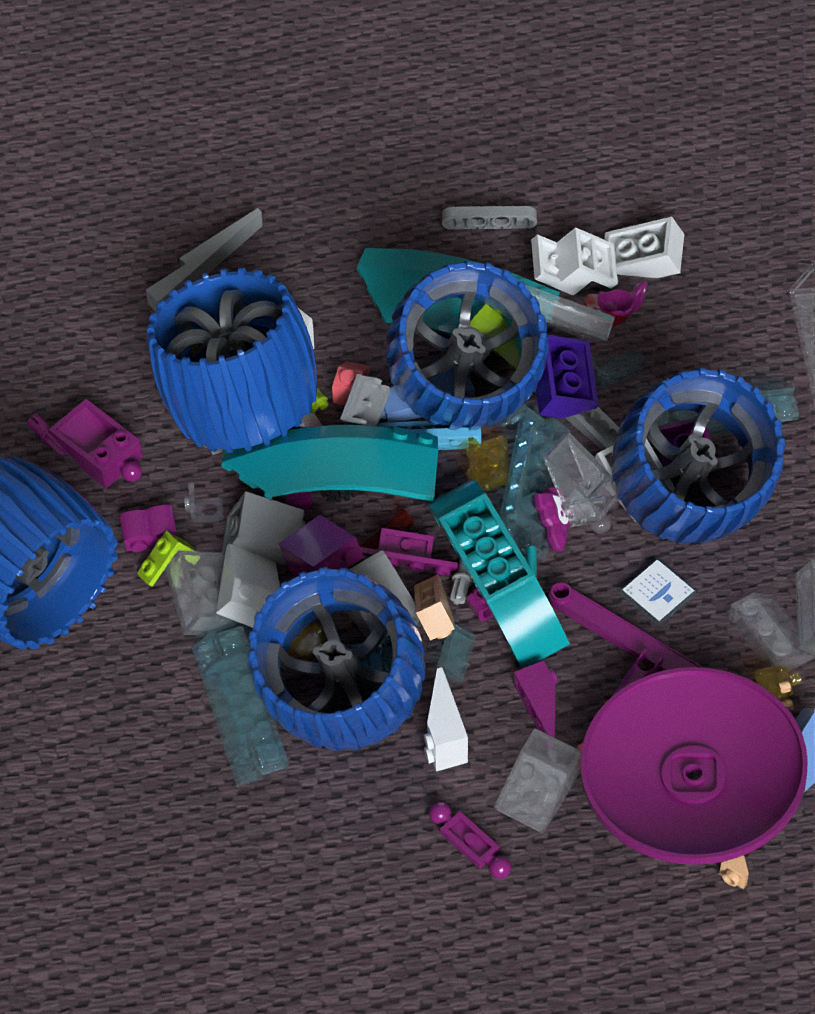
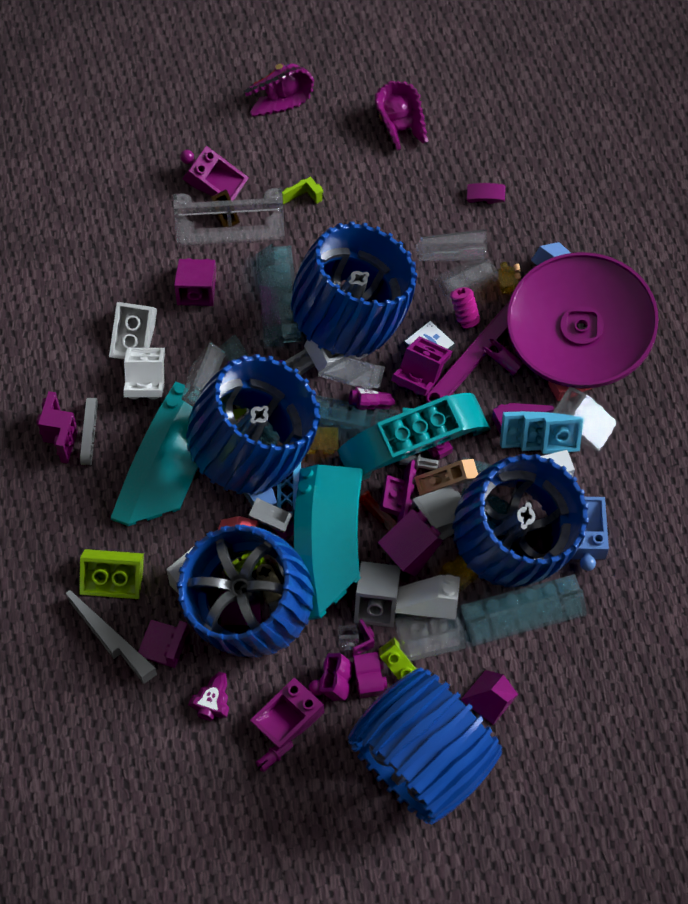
camera: 90 degrees left, 5 degrees up
(119, 668) = (490, 696): none -> magenta slope
(122, 368) = (212, 699): none -> magenta rock
(142, 488) = (336, 677): none -> magenta brick
(203, 525) = (369, 635): none -> magenta bracket
(292, 252) = (111, 573): none -> lime slope
(366, 779) = (595, 542): none -> medium blue slope
(470, 840) = (626, 465): magenta plate -> none
(490, 173) = (57, 426): none -> magenta bracket
(509, 719) = (541, 431): none -> medium azure slope
(609, 572) = (421, 366): none -> magenta bracket
(618, 302) = (185, 348): magenta hair -> none
(714, 625) = (465, 307): none -> dark pink piece
(727, 308) = (195, 282): none -> magenta slope

